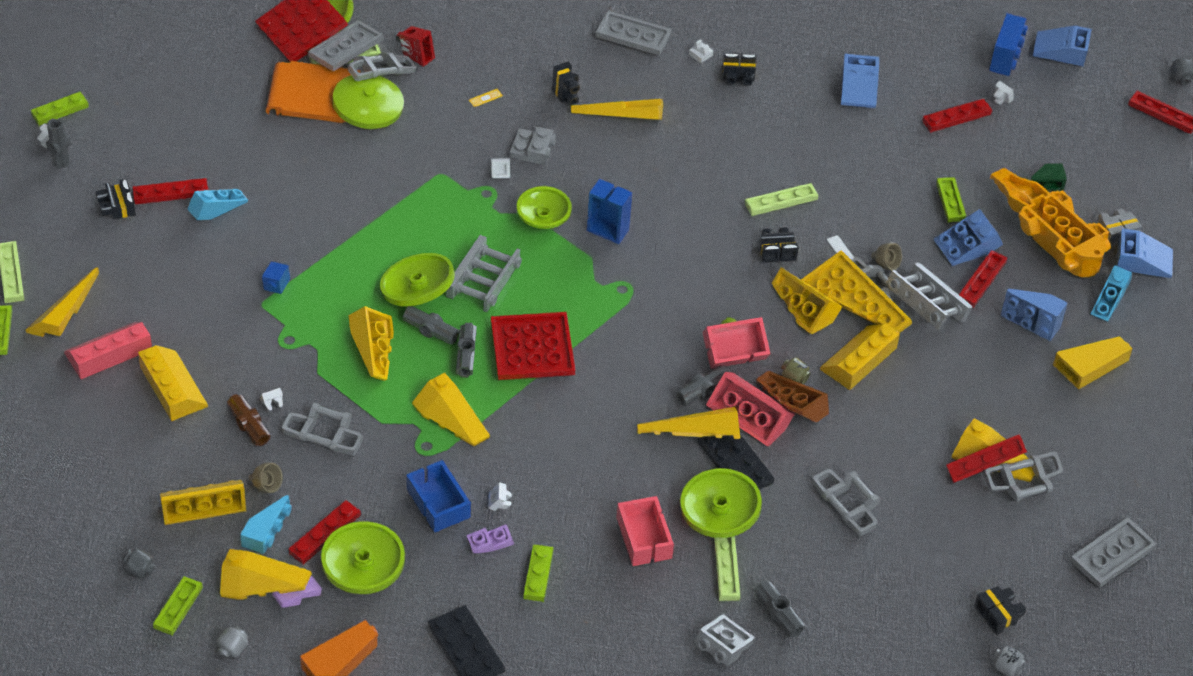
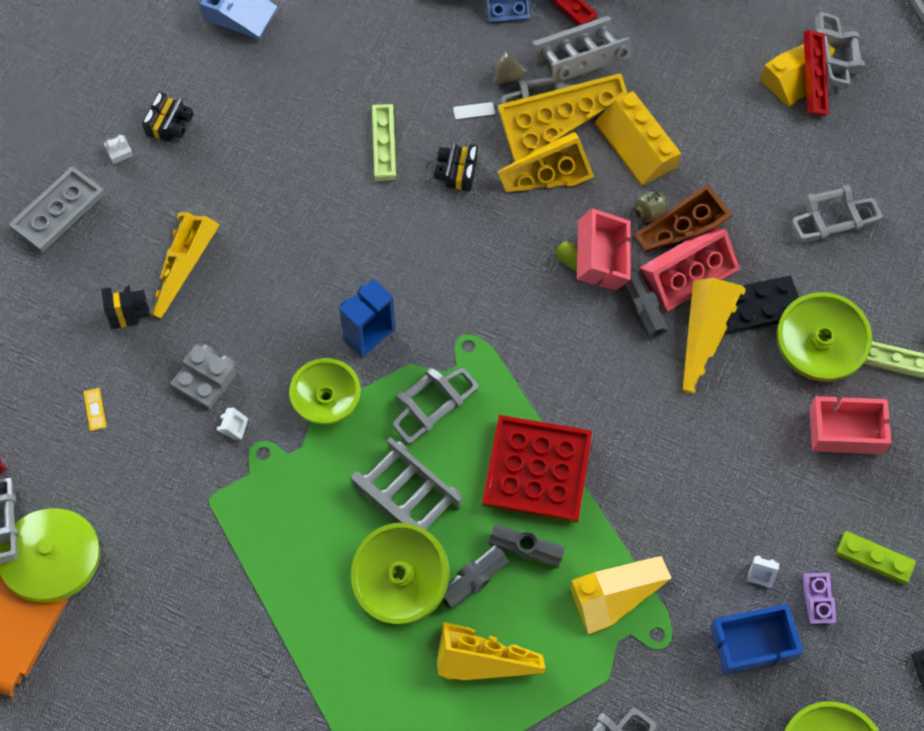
camera: 70 degrees left, 15 degrees up
(551, 261) = (439, 380): none -> light grey bar

